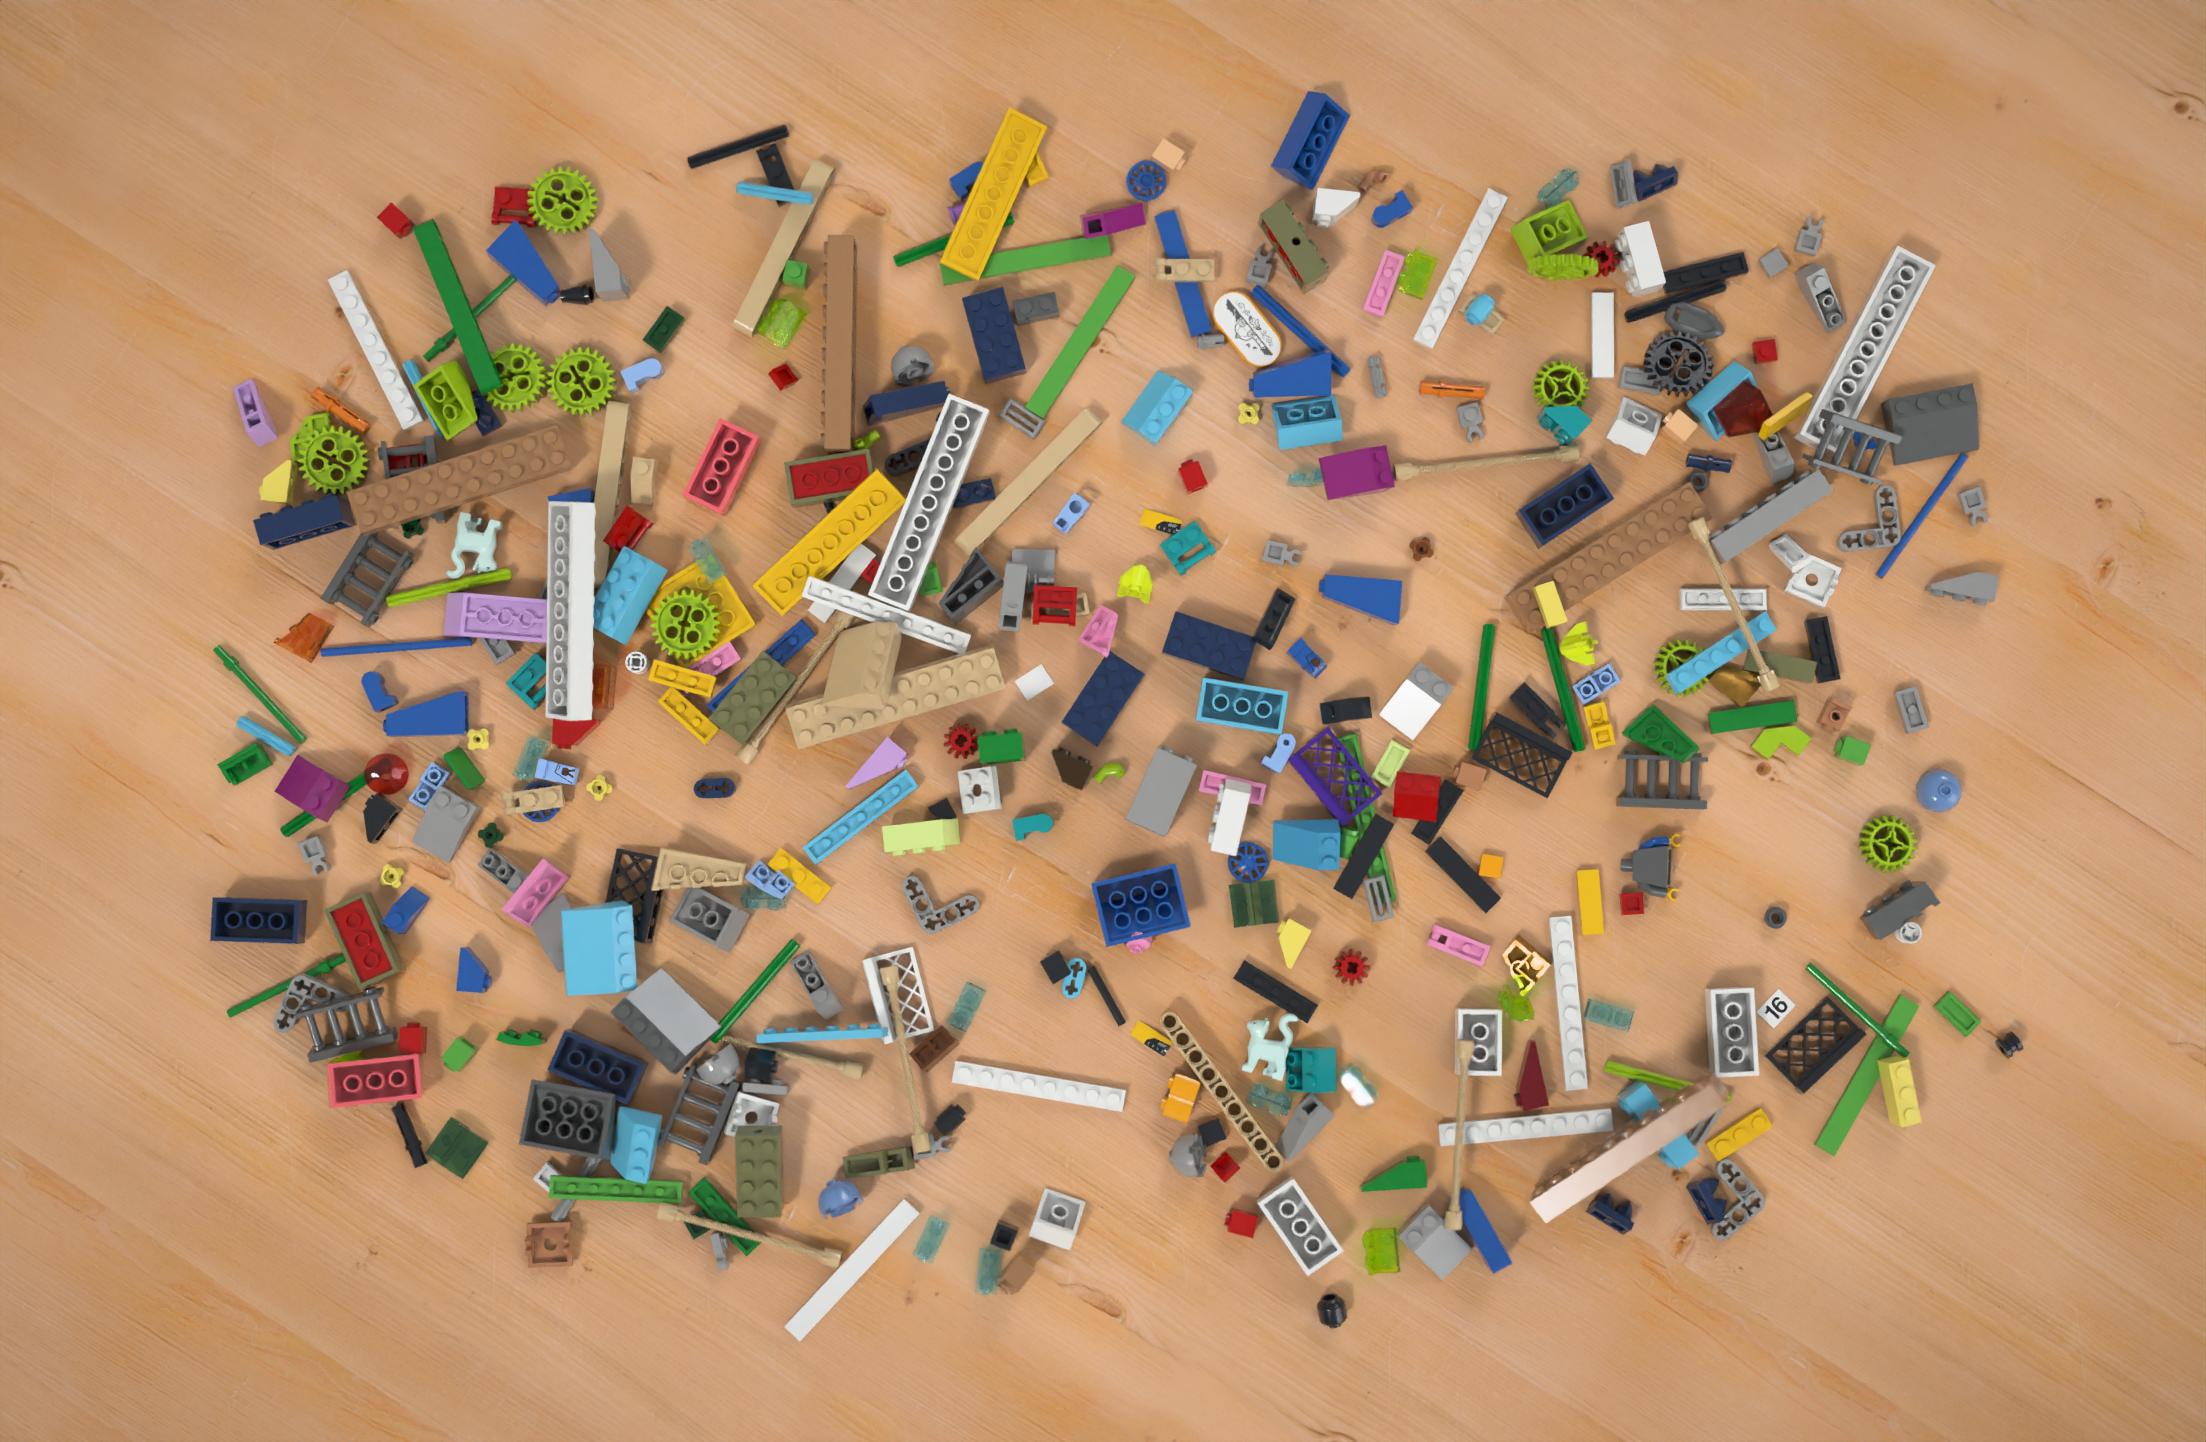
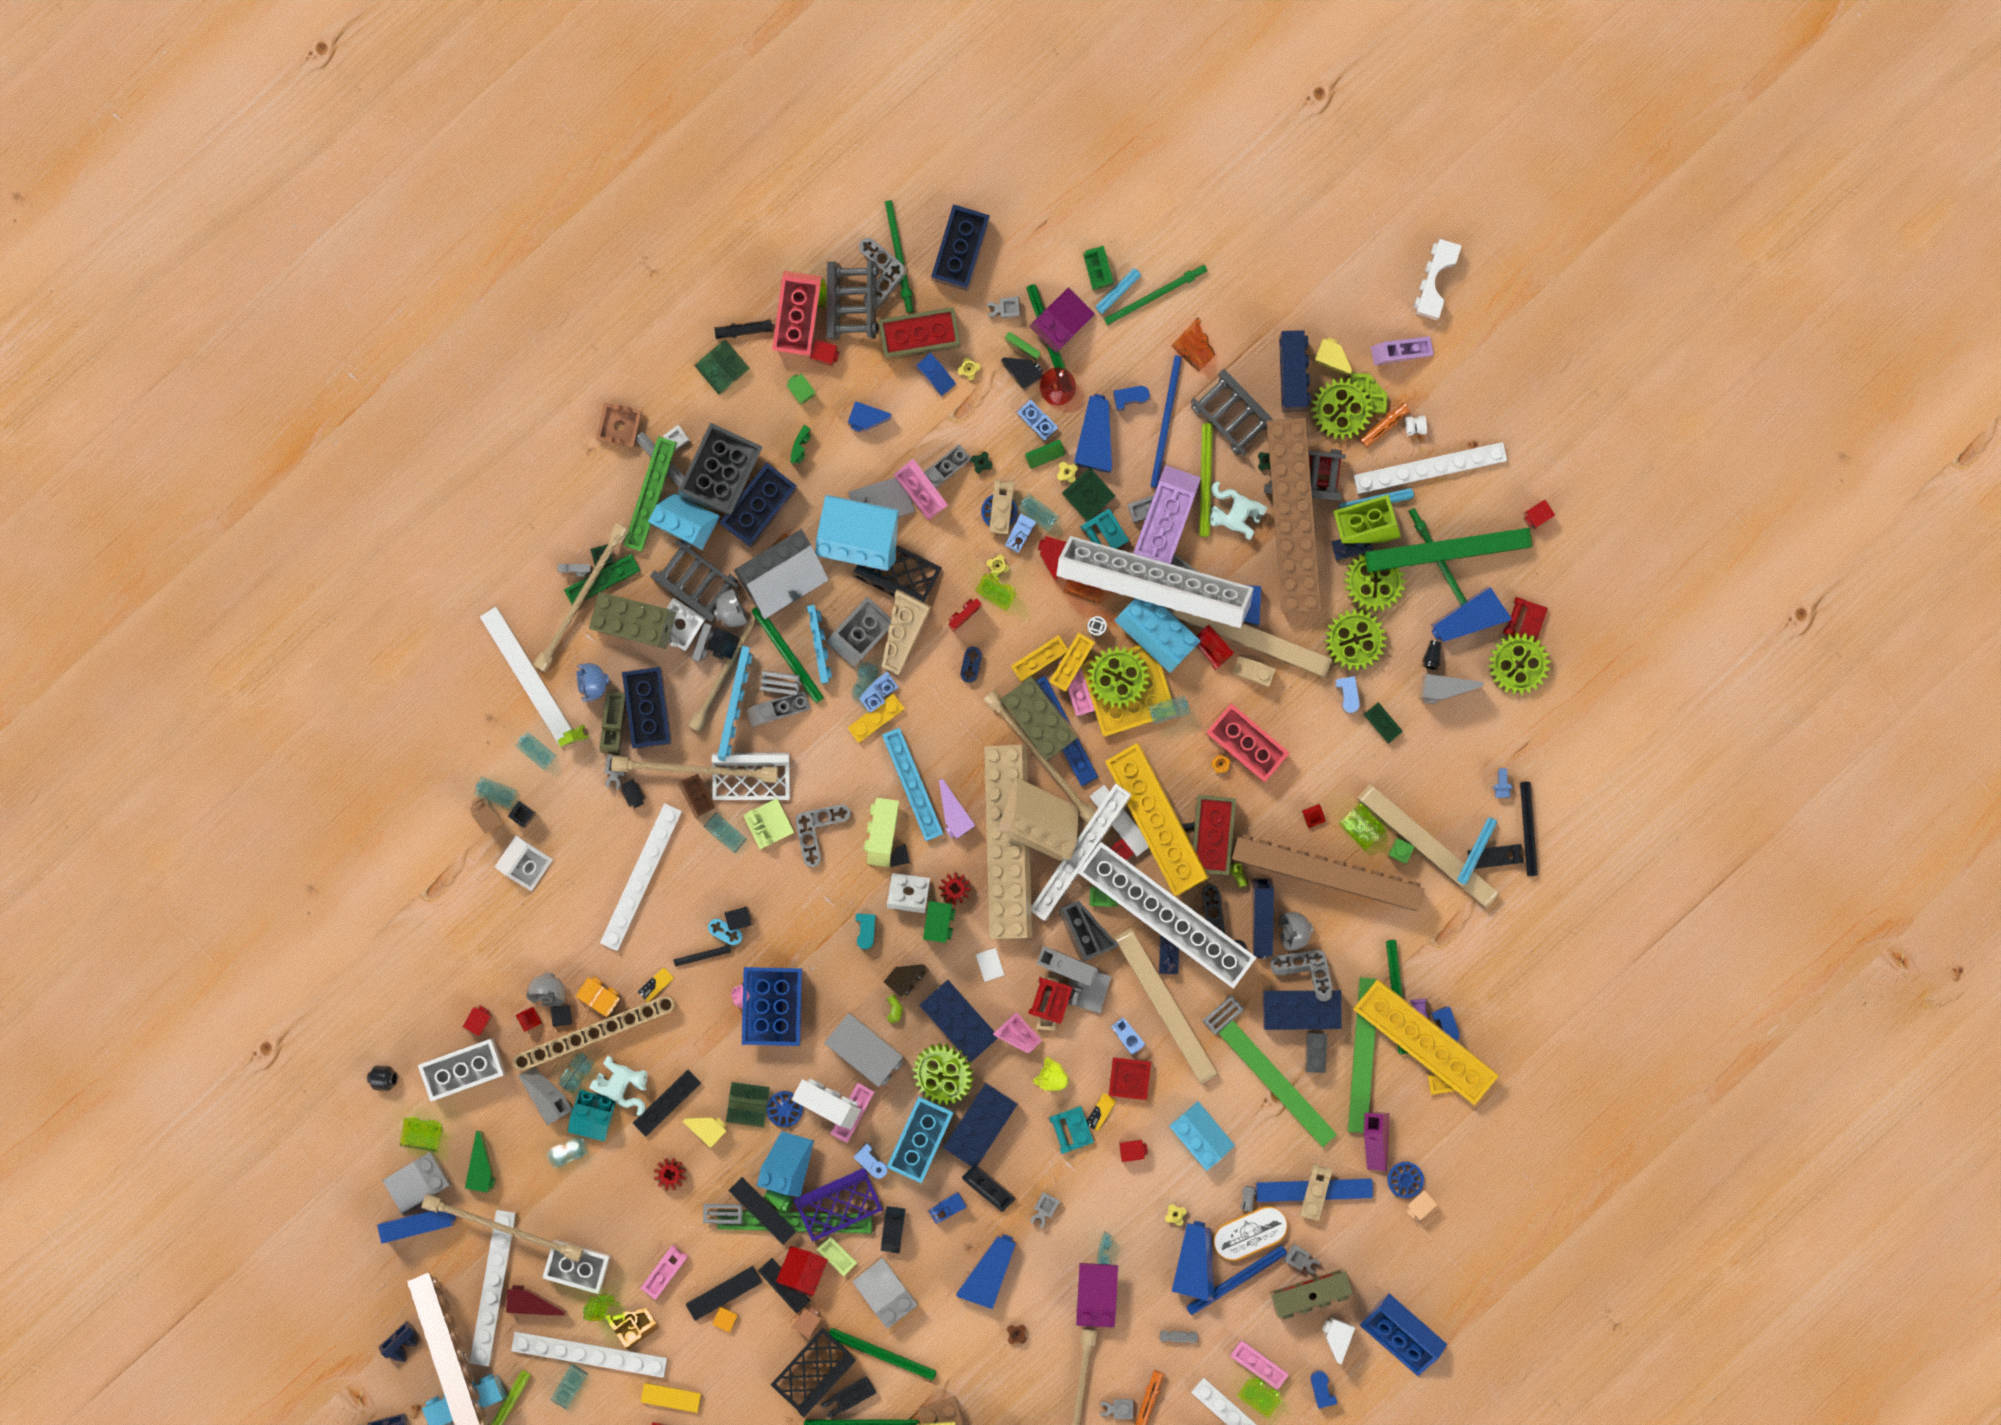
camera: 105 degrees right, 0 degrees up
(193, 395) = (1444, 256): none -> white arch
(332, 376) = (1416, 425): none -> white wheel
(351, 824) = (1022, 345): none -> bright green tile
(446, 823) = (1001, 426): light grey slope -> none
(496, 709) = (1088, 494): none -> dark green plate
(627, 781) = (996, 592): none -> clear neon green bracket
(654, 805) = (959, 619): none -> red plate
(699, 184) = (1502, 789): none -> medium blue piece
(726, 962) = (818, 637): none -> medium azure wing
(757, 486) = (1220, 759): none -> light orange plate
(789, 1008) = (765, 681): none -> light grey tile
(851, 1129) = (647, 708): none -> dark blue brick
(904, 1203) = (572, 736): none -> lime plate
(944, 334) = (1313, 966): none -> light grey beam
(944, 962) = (768, 823): none -> yellowish green hinge
(1116, 500) = (1129, 1078): none -> red plate
(1147, 703) = (943, 1073): none -> lime gear
(1307, 422) = (1154, 1264): medium azure slope -> none
(1373, 177) = (1356, 1381): nougat arm -> none

